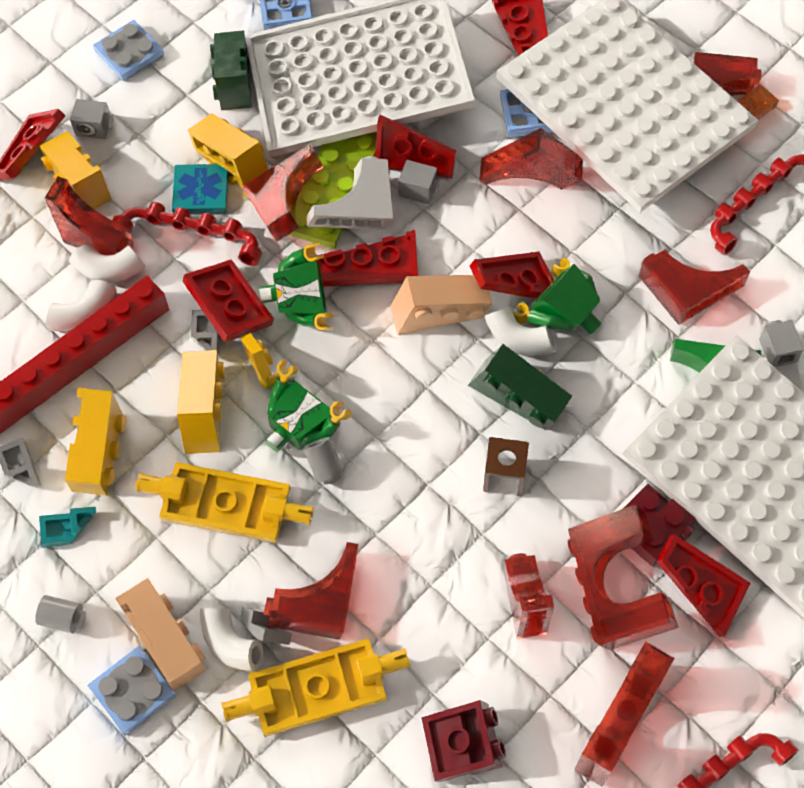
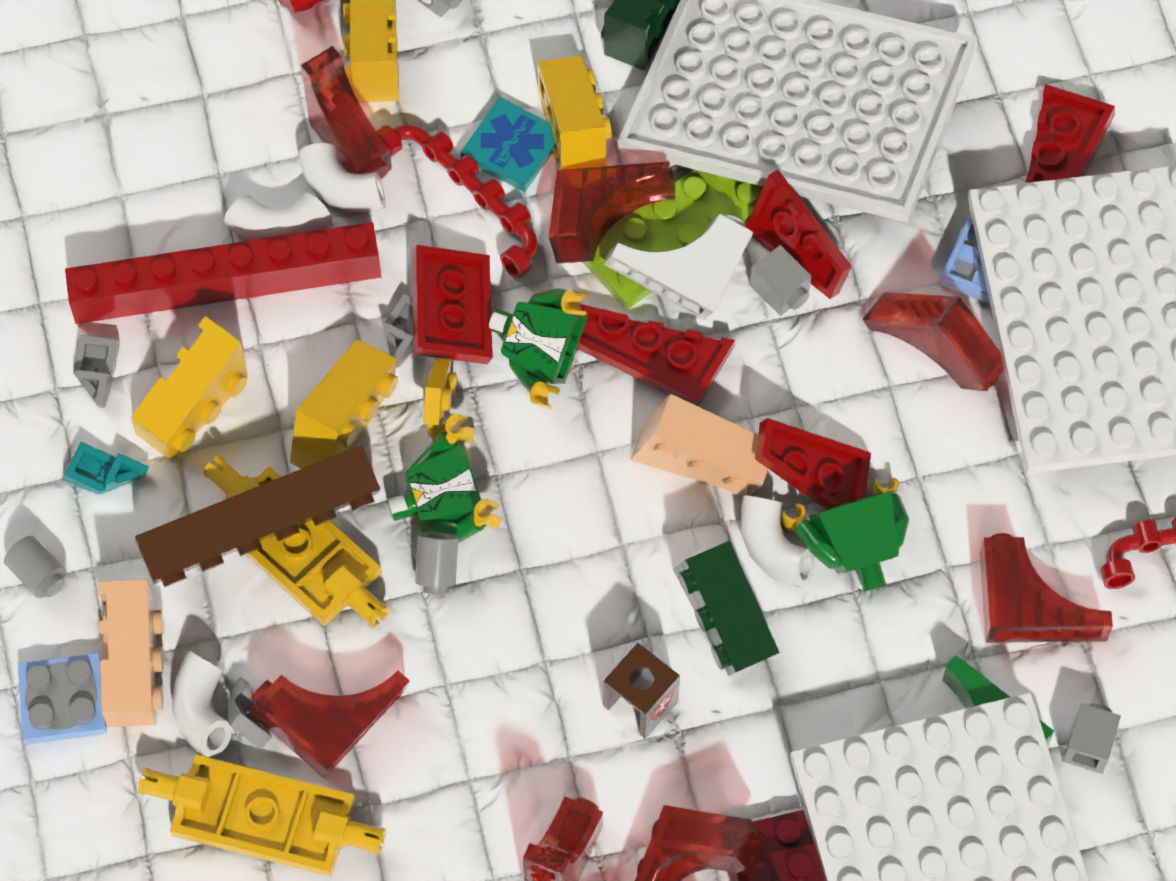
camera: 30 degrees right, 0 degrees up
(190, 497) = (257, 515): none -> reddish brown brick

